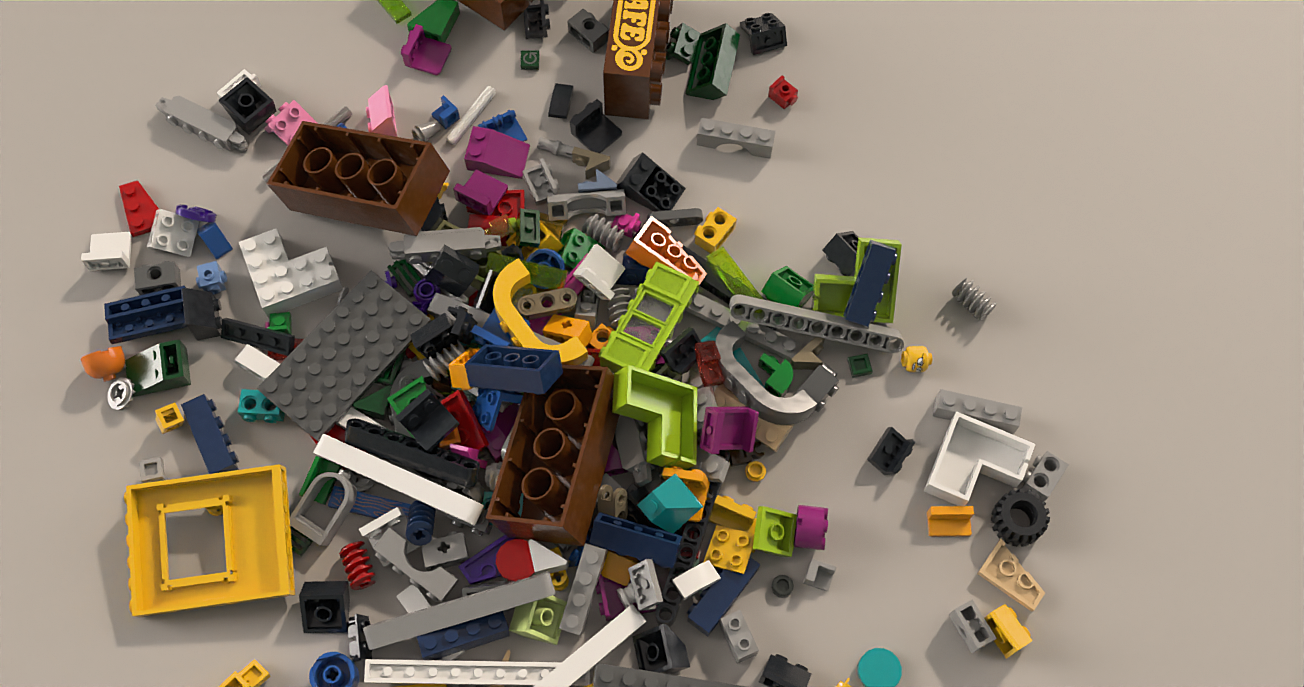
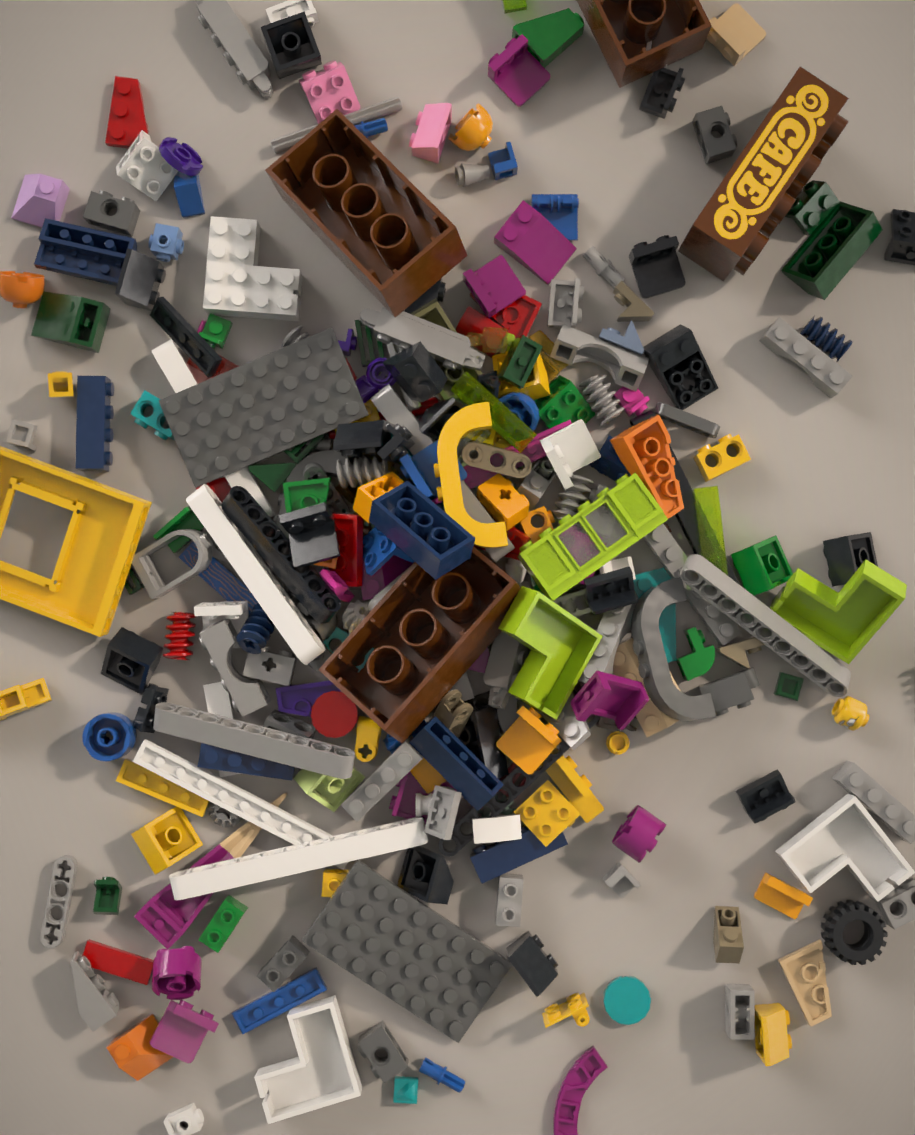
camera: 30 degrees right, 20 degrees up
(92, 293) = (40, 199): none -> lavender slope
(108, 251) = (75, 152): white bracket -> none
(115, 393) = (20, 324): light grey gear -> none
(412, 101) = (473, 130): none -> light orange cylinder
(471, 115) = (530, 178): white axle -> none
(530, 60) = (630, 139): dark green tile -> none
(546, 560) = (359, 733): white slope -> none
(560, 101) = (637, 210): black slope -> none
(670, 504) = (508, 745): teal slope -> none
(707, 361) = (627, 616): clear red slope -> none
(742, 118) = (826, 338): none -> dark blue piece
(774, 531) = (600, 820): lime plate -> none
(782, 586) = (579, 870): pearl dark grey tile -> none
(783, 93) = (882, 327): red brick -> none
(869, 283) = (847, 619): dark blue brick -> none
(927, 573) = (727, 935): none -> dark tan slope

